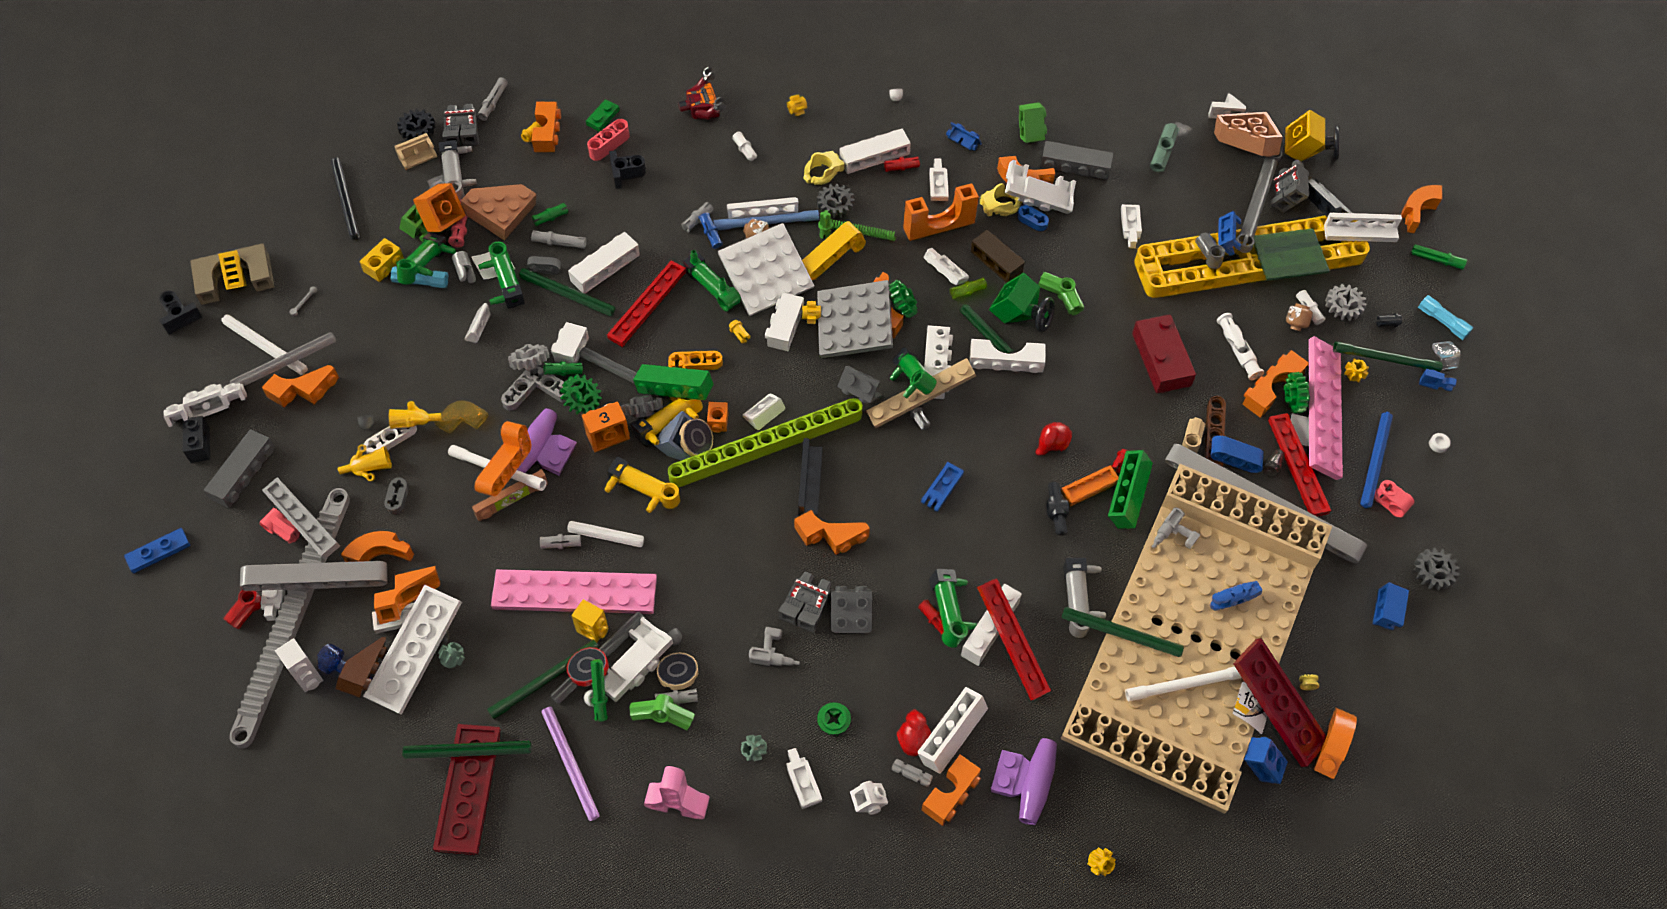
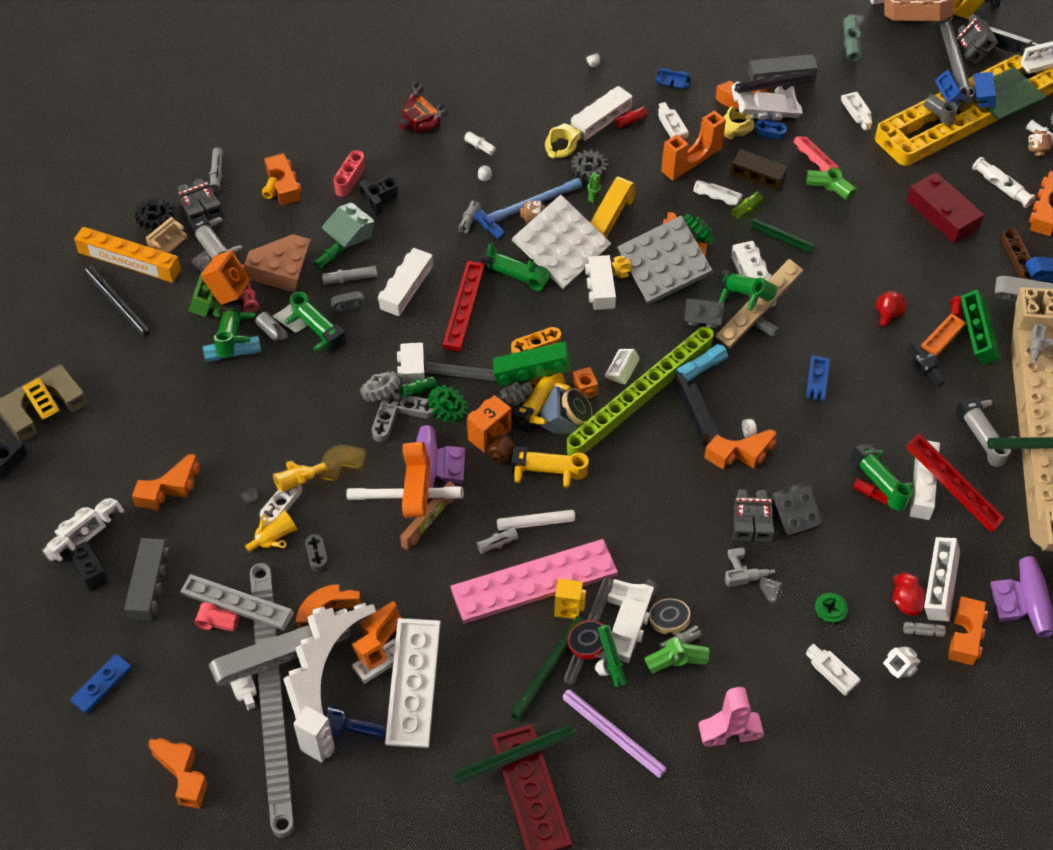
camera: 20 degrees left, 5 degrees down
(183, 645) = (179, 761): none -> orange arch
(242, 608) = (220, 707): red piece -> none
(261, 342) = (108, 458): white axle -> none
(285, 359) = (140, 464): light grey axle -> none
(294, 311) = (120, 420): light grey hinge -> none
(316, 616) = (305, 685): none -> white arch
(357, 670) = (373, 721): reddish brown slope -> none
(373, 157) = (127, 254): none -> light orange brick
(381, 259) = (186, 345): yellow brick -> none
(451, 655) = (451, 676): sand green gear -> none
(478, 324) = (310, 368): white slope -> none
(567, 292) = (381, 319): dark green axle -> none
(580, 191) = (349, 225): none -> sand green slope
(602, 115) = (330, 154): green plate -> none
(606, 454) = (500, 449): none -> reddish brown head
(732, 179) = (484, 173): none -> white hinge
(737, 328) = (562, 303): yellow pin -> none
(754, 747) = (772, 652): sand green gear -> none
(762, 208) = (526, 191): white fence -> none
(787, 678) = (770, 588): none -> clear tile
(797, 105) = (509, 93): yellow gear -> none
(849, 514) = (749, 428): none -> white tile
(851, 431) = (711, 357): none -> medium azure axle
(869, 233) = (634, 180): bright green piece -> none
(985, 356) = (835, 247): white arch -> none
(1019, 302) = (800, 201): green piece -> none
(1032, 122) = (729, 48): bright green brick -> none
(1059, 171) = (773, 82): none -> black axle
(1063, 257) = (815, 154): none -> coral plate
(1194, 434) = (1005, 264): tan piece -> none
(1265, 243) = (985, 89): none -> blue hinge

